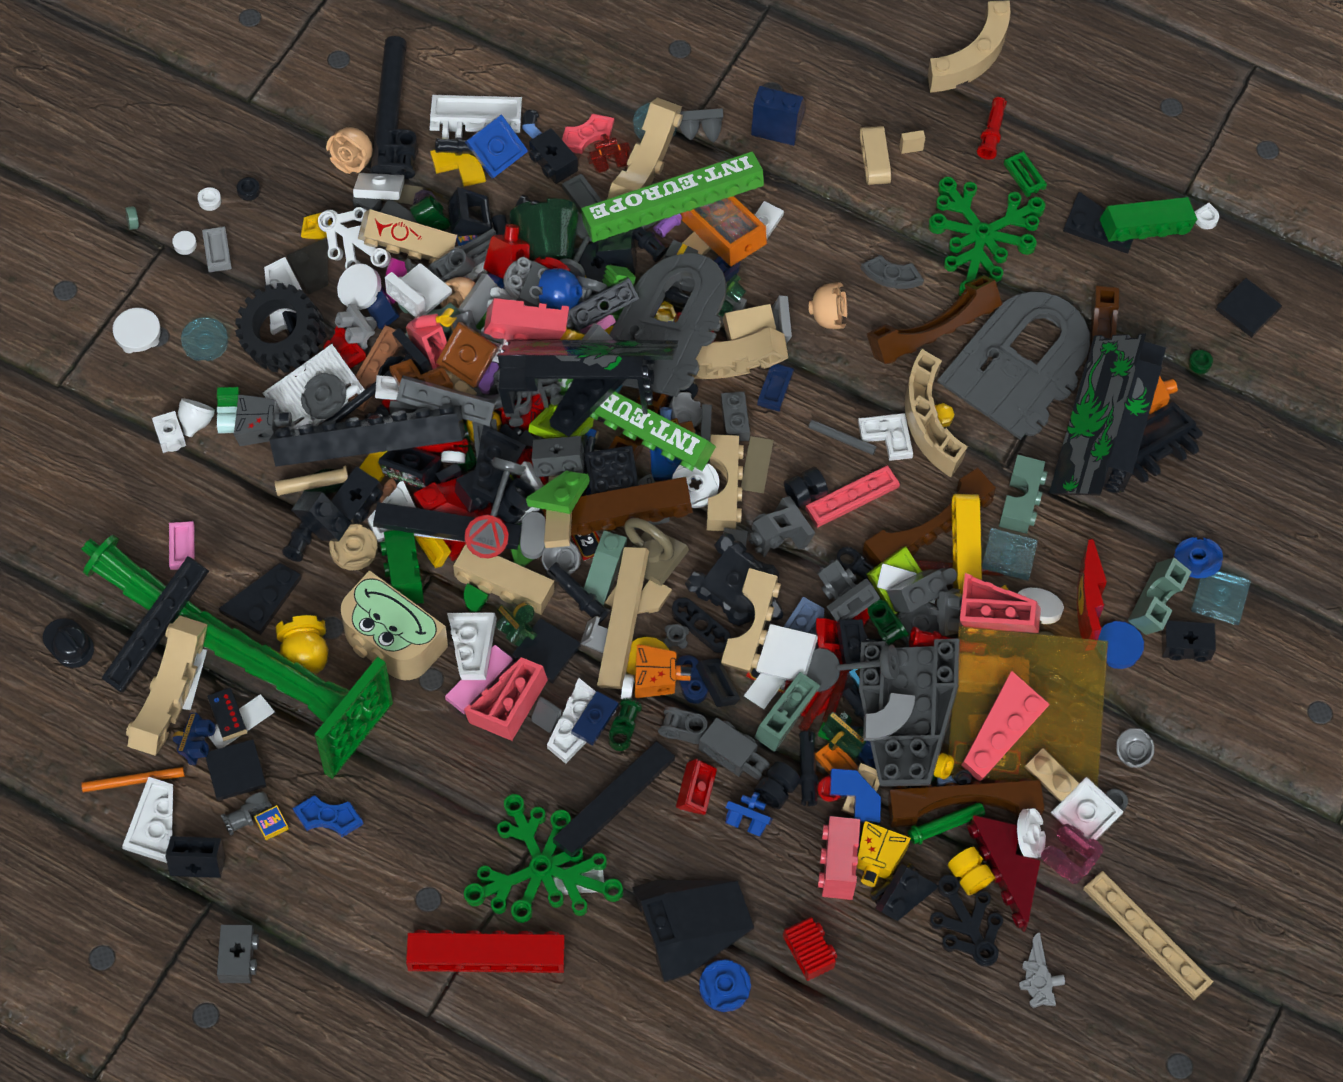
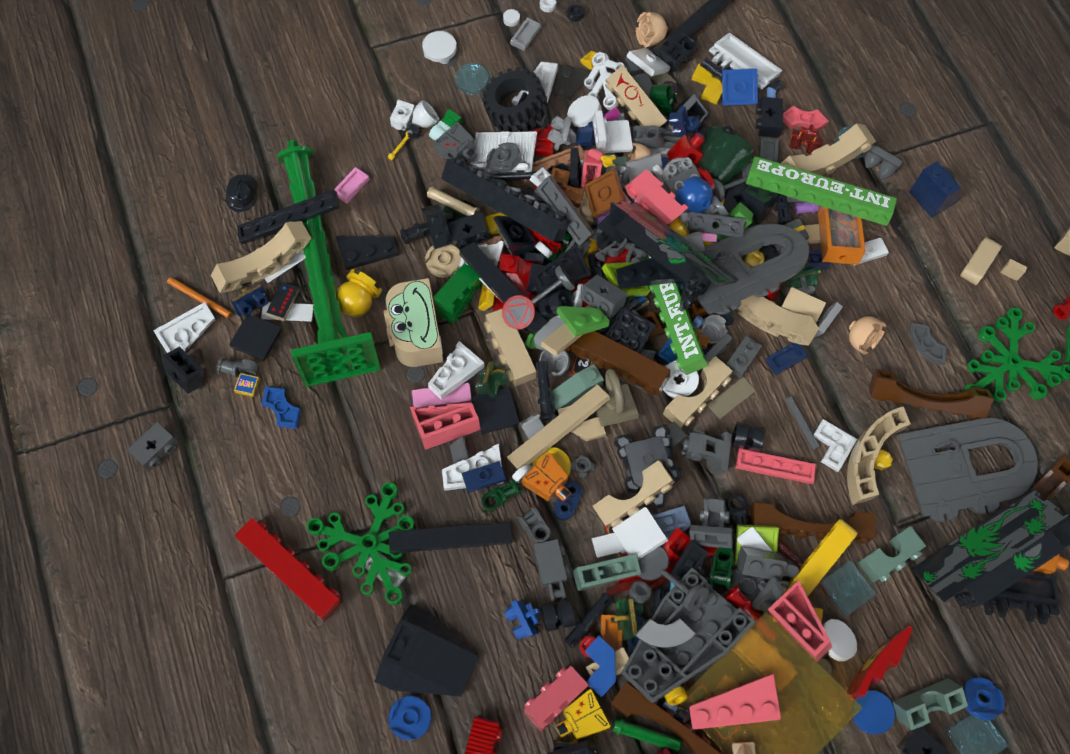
camera: 40 degrees right, 5 degrees up
(194, 442) = (411, 132): none -> hinge
(474, 598) = (483, 345): green tile -> none
(478, 226) = (683, 123): none -> dark blue hips
(683, 619) = (608, 457): black beam -> none
(696, 787) = (509, 573): red slope -> none
(717, 682) = (581, 517): black tile -> none
(833, 702) = (639, 592): none -> dark grey tile

